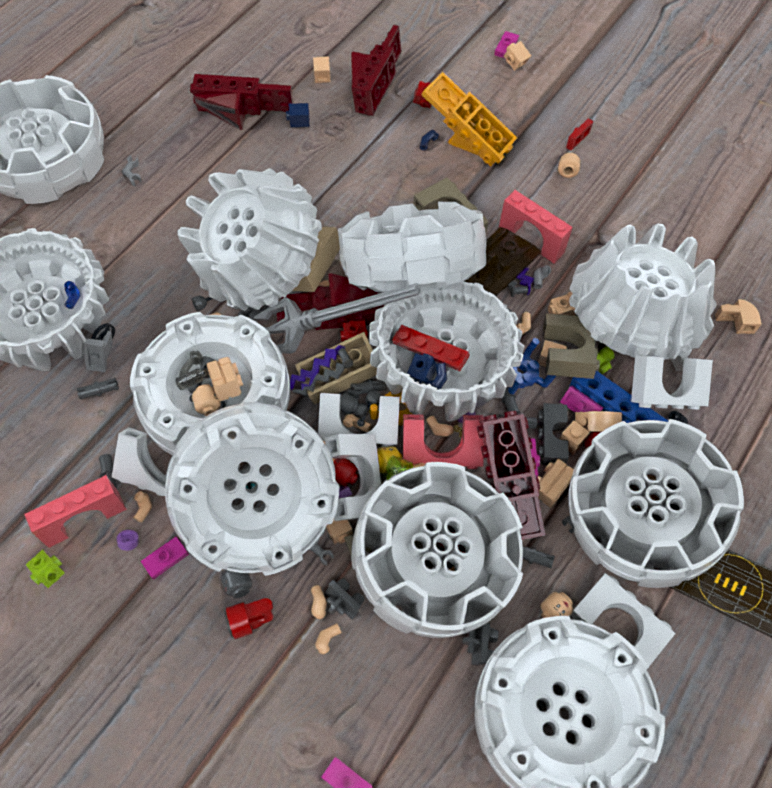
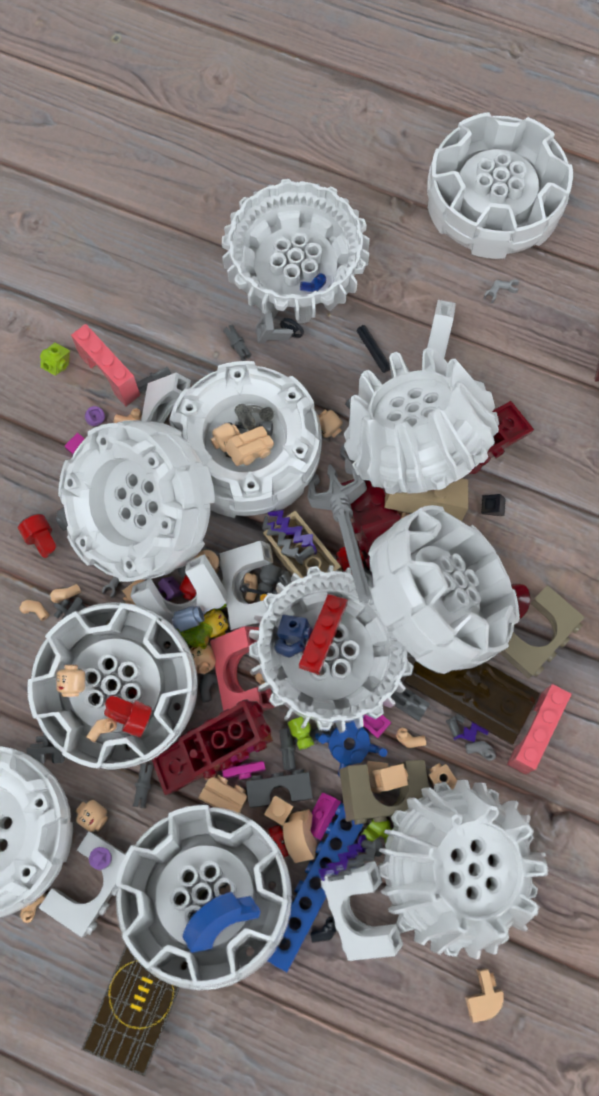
camera: 80 degrees right, 10 degrees up
(150, 276) = (373, 348): none -> black axle
(156, 214) = (442, 326): none -> white arch
(330, 220) = (493, 505): none -> black slope
(381, 470) = (187, 618): none -> sand blue brick
(434, 578) = (70, 681): none -> light nougat head
(480, 527) = (133, 715): none -> red piece
(481, 563) = (101, 726): none -> light nougat arm
(504, 404) = (304, 740): none -> lime piece
(560, 336) = (390, 777): none -> light nougat brick
(602, 600) = (100, 858): none -> medium lavender tile
(633, 368) = (363, 845): none -> piece
(685, 479) = (215, 917): none -> blue arch

